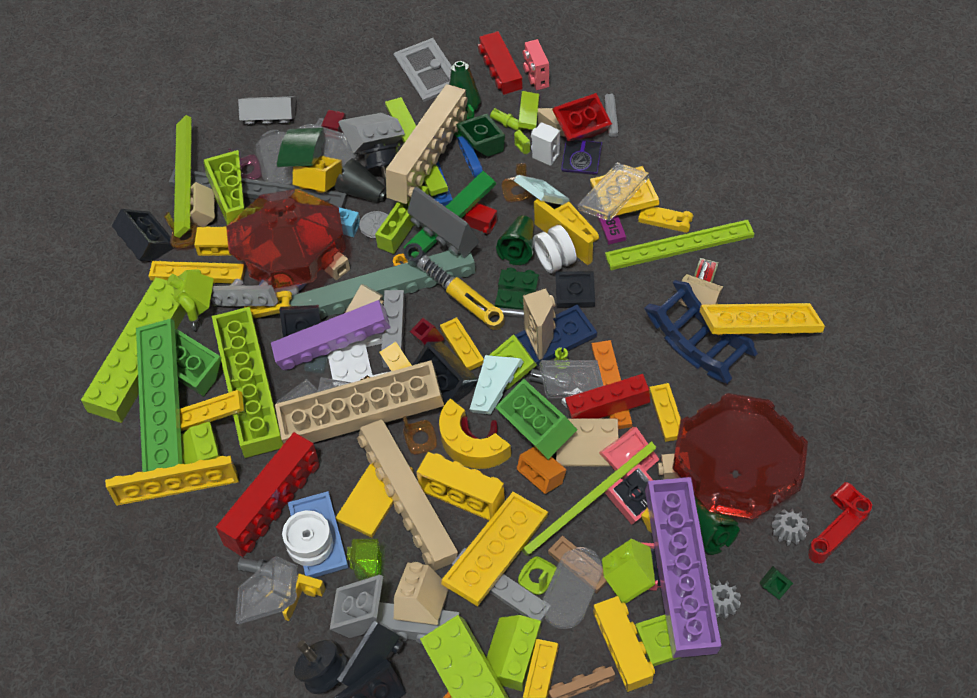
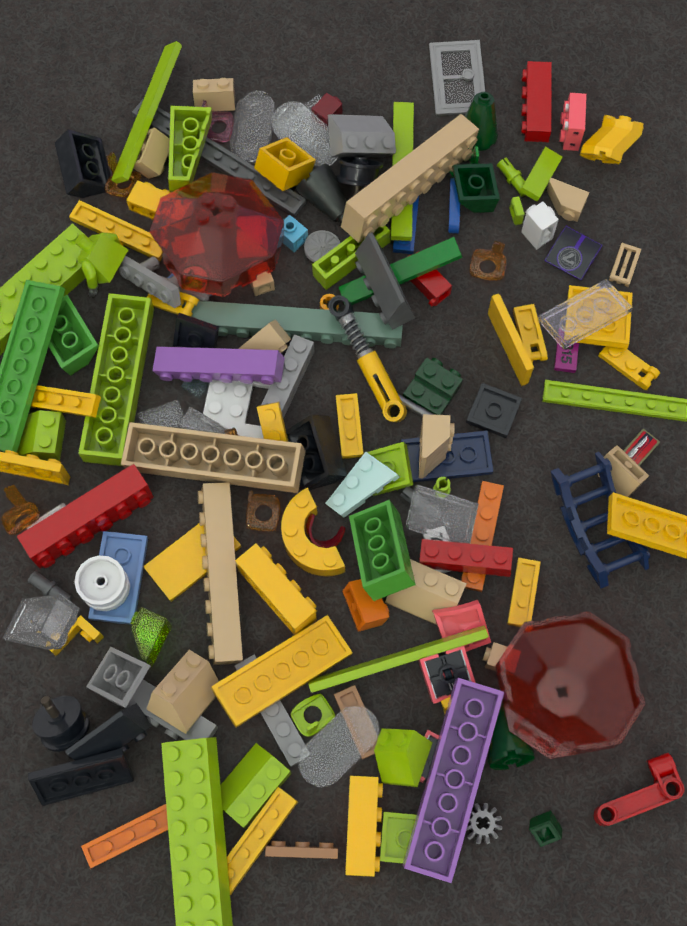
camera: 20 degrees right, 15 degrees up
(198, 526) = (21, 507): none -> clear orange piece
(236, 140) = (217, 93): none -> tan brick
(267, 109) = (267, 61): light grey slope -> none
(301, 147) = (276, 130): dark green slope -> none
(425, 331) = (317, 401): dark red brick -> none
(517, 241) = (458, 329): dark green cone -> none
(541, 190) = (509, 282): light aqua tile -> none
(554, 249) = (491, 357): white wheel -> none
(572, 67) = (612, 139): none -> yellow brick
(582, 118) = (591, 210): red slope -> none
(611, 112) = (629, 214): light grey axle -> none
(627, 161) = (619, 279): none -> tan tile
(790, 527) = (582, 781): light grey gear -> none

